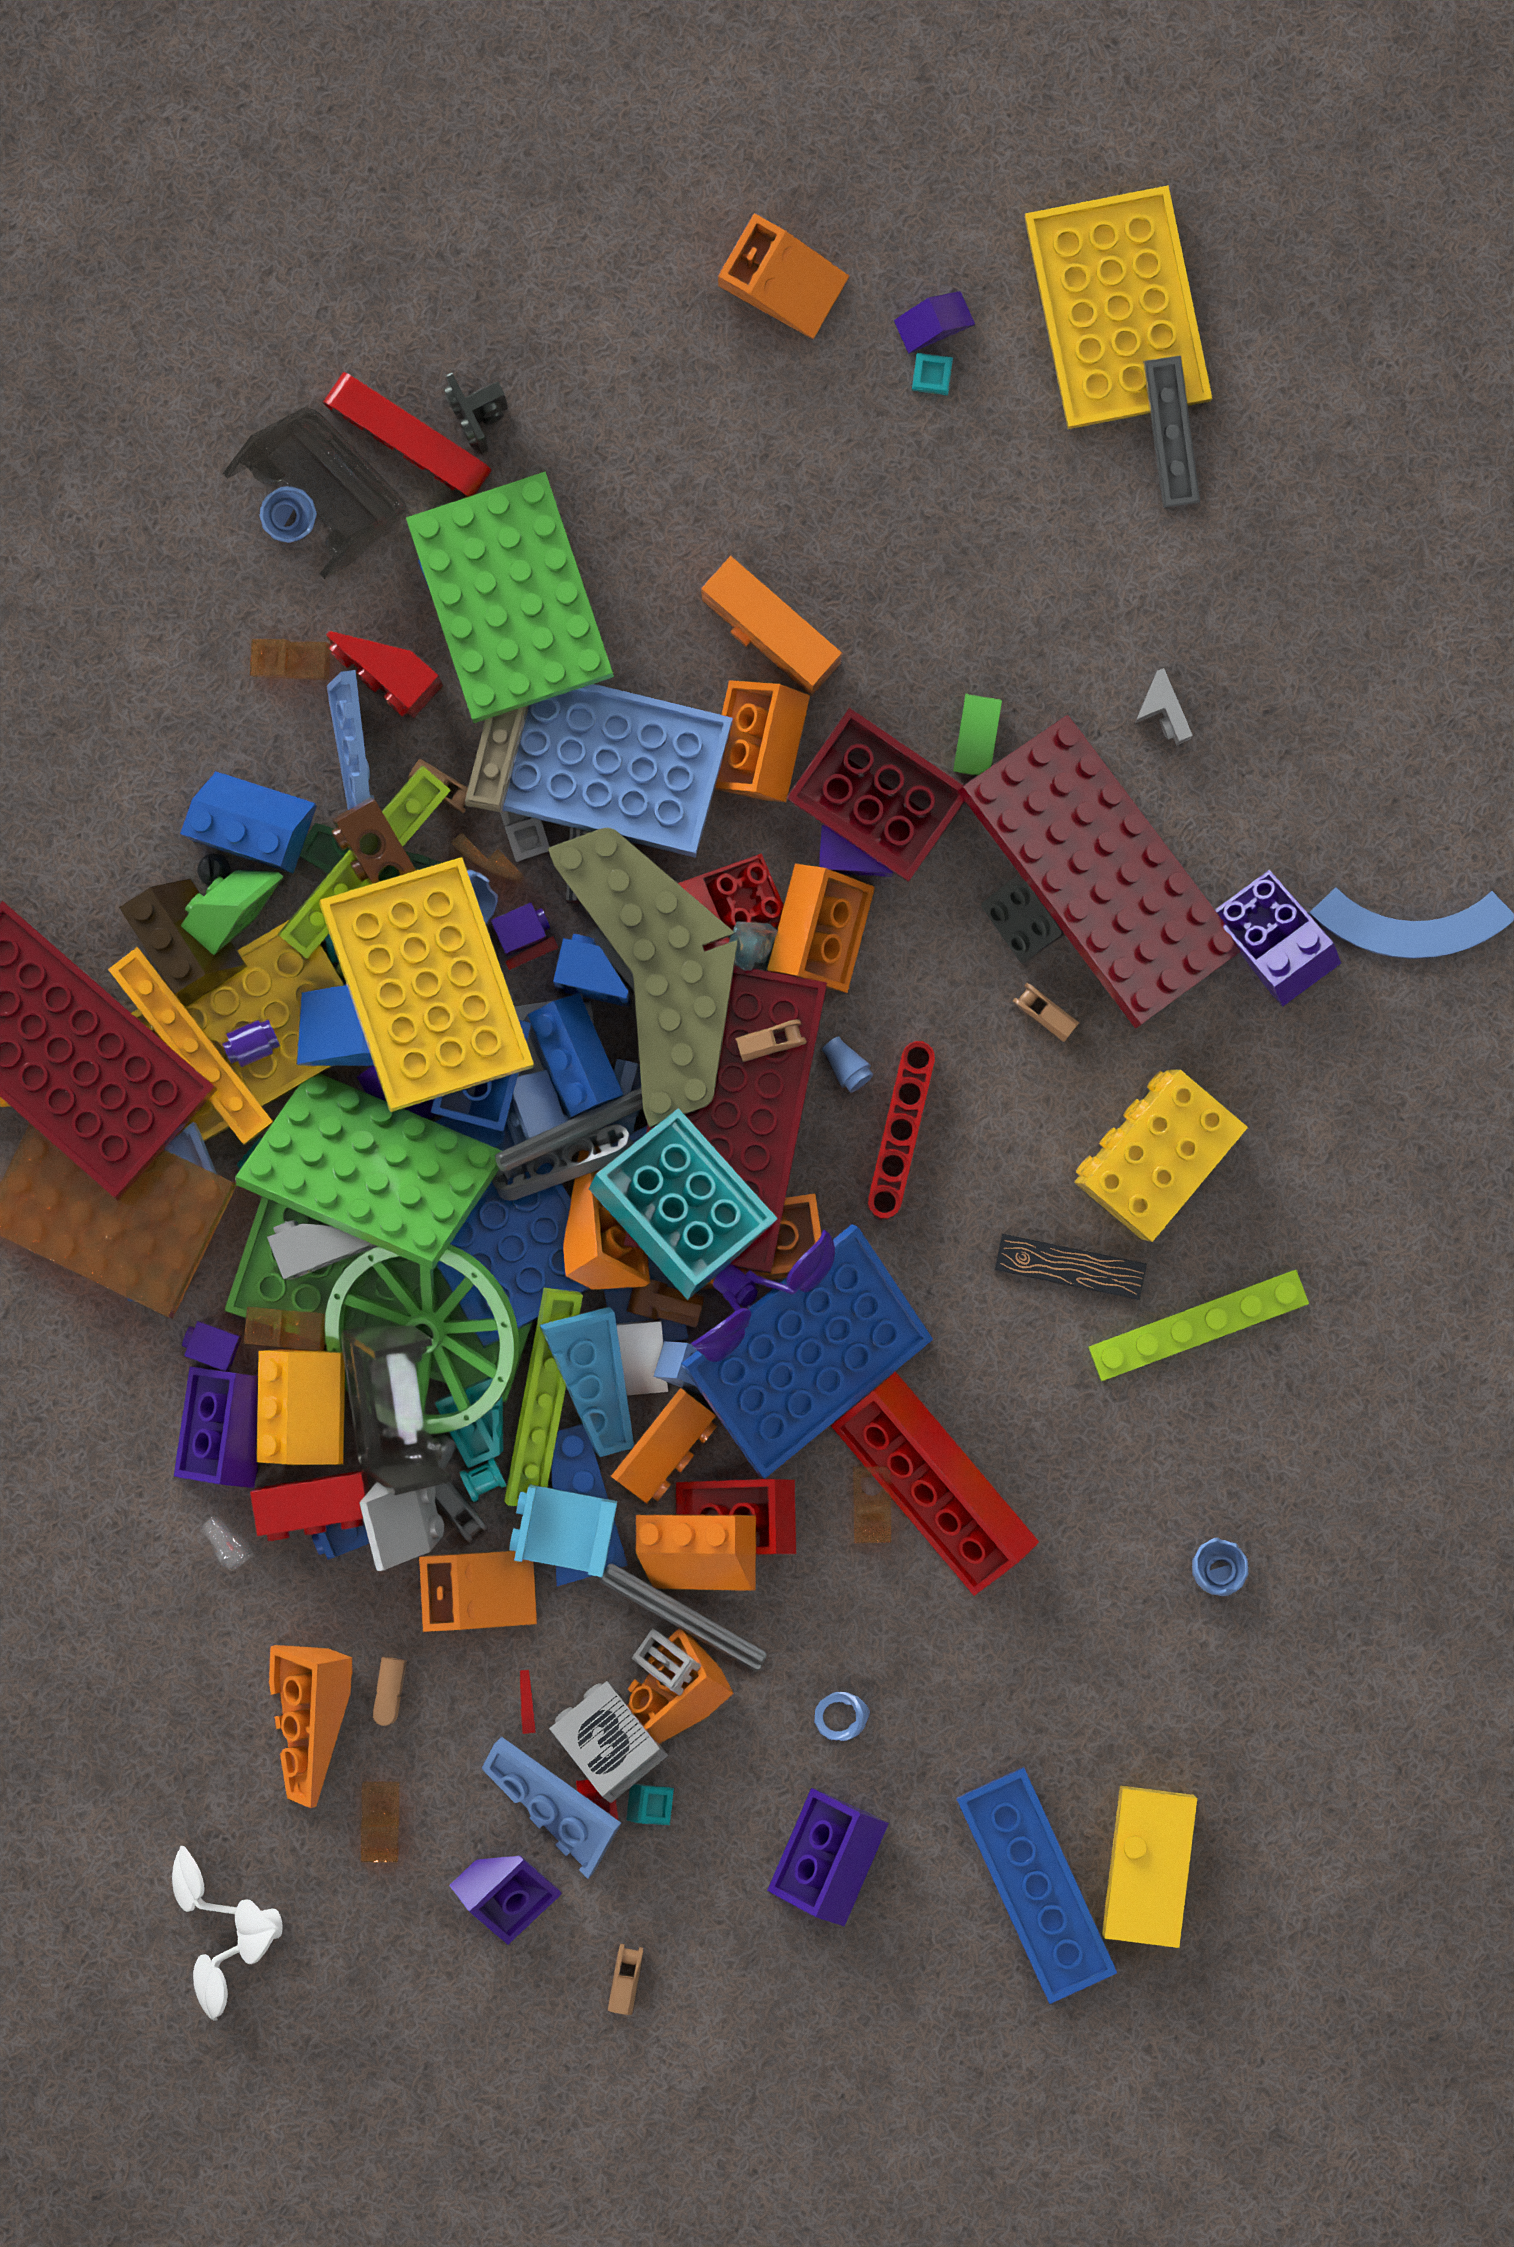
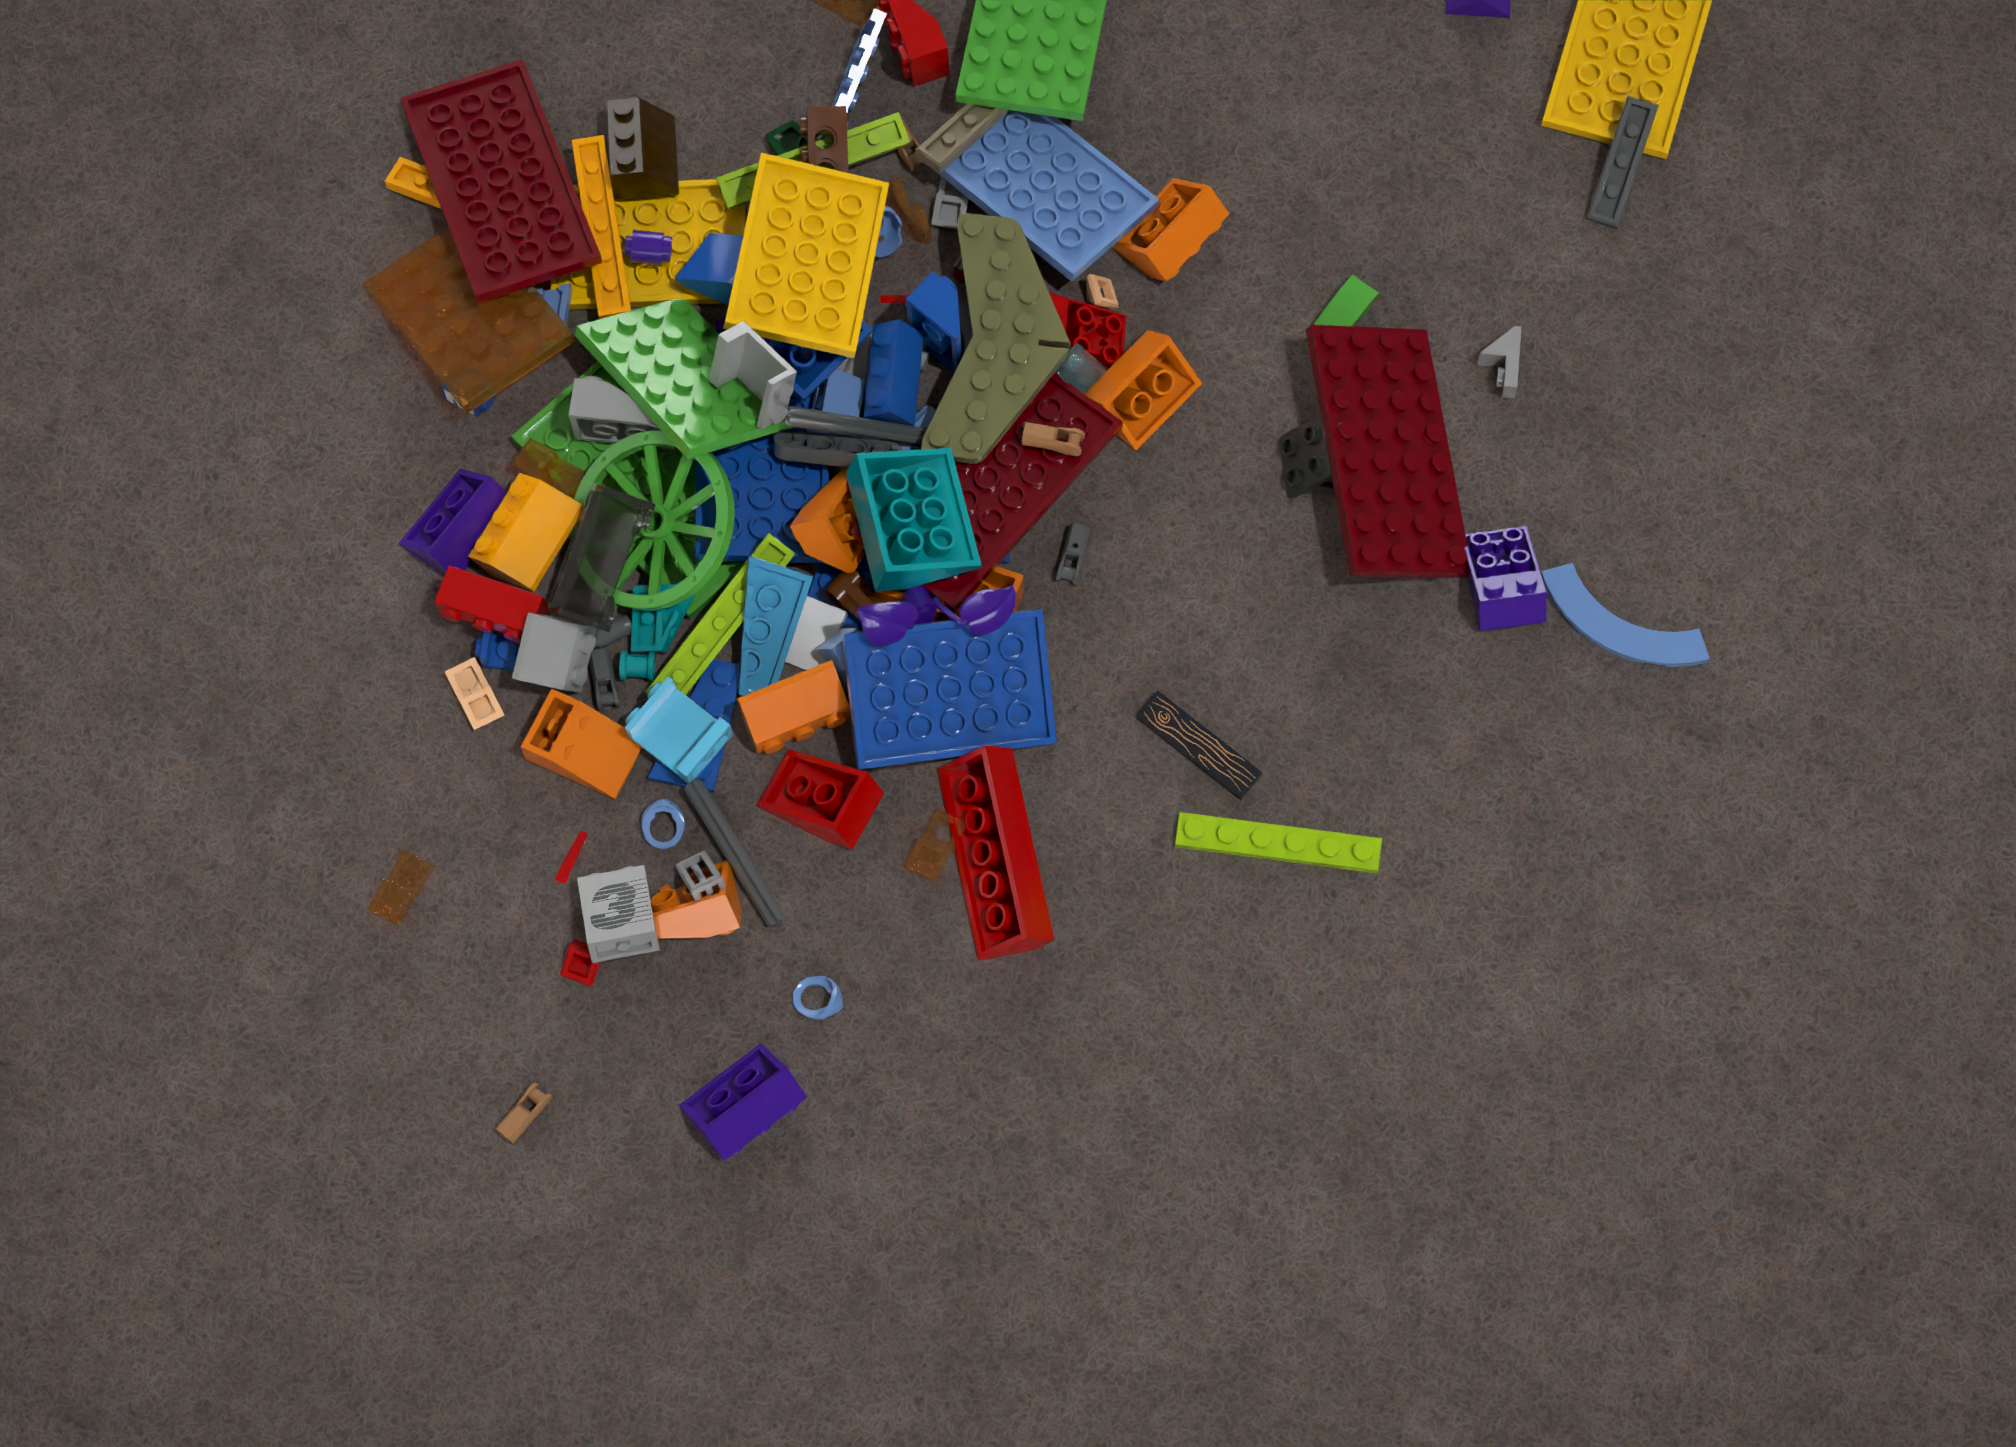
camera: 30 degrees right, 15 degrees down
(211, 1345) = (486, 456): dark purple brick -> none
(212, 867) = (695, 118): black piece -> none
(226, 1544) = (408, 615): clear cone -> none
(229, 907) = (690, 143): bright green slope -> none
(249, 821) = (741, 94): blue slope -> none
(254, 1931) = (247, 905): white plant -> none
(313, 1699) = (407, 760): orange wedge -> none
(338, 1591) = (474, 693): none -> light nougat slope
(389, 1690) = (468, 789): medium nougat bar -> none
(450, 1133) = (749, 358): none -> light grey panel
(504, 1894) = (467, 992): dark purple slope -> none
(521, 928) = (904, 271): dark purple brick -> none
(567, 1814) = (546, 943): medium blue wing -> none
(586, 1608) = (649, 815): none -> medium blue piece
(650, 1804) = (624, 987): teal slope -> none
(698, 1551) = (774, 799): orange slope -> none
(719, 851) = (1094, 294): none -> light nougat slope
(770, 626) = (1226, 146): orange brick -> none
(844, 1129) = (1074, 550): none -> dark grey bar
(846, 858) = (1198, 344): dark purple slope -> none
(847, 1065) = (1105, 502): medium blue cone -> none
(878, 795) = (1243, 308): dark red slope -> none
(901, 1112) = (1123, 555): red beam -> none
(932, 374) = (1456, 35): teal tile -> none
(1036, 1885) = (900, 1215): blue plate -> none
(1051, 1017) = (1288, 544): medium nougat bar -> none
(1149, 1866) = (1001, 1245): yellow brick -> none
(1159, 1153) = (1317, 684): yellow brick -> none
(1225, 1579) = (1191, 1024): medium blue hair -> none

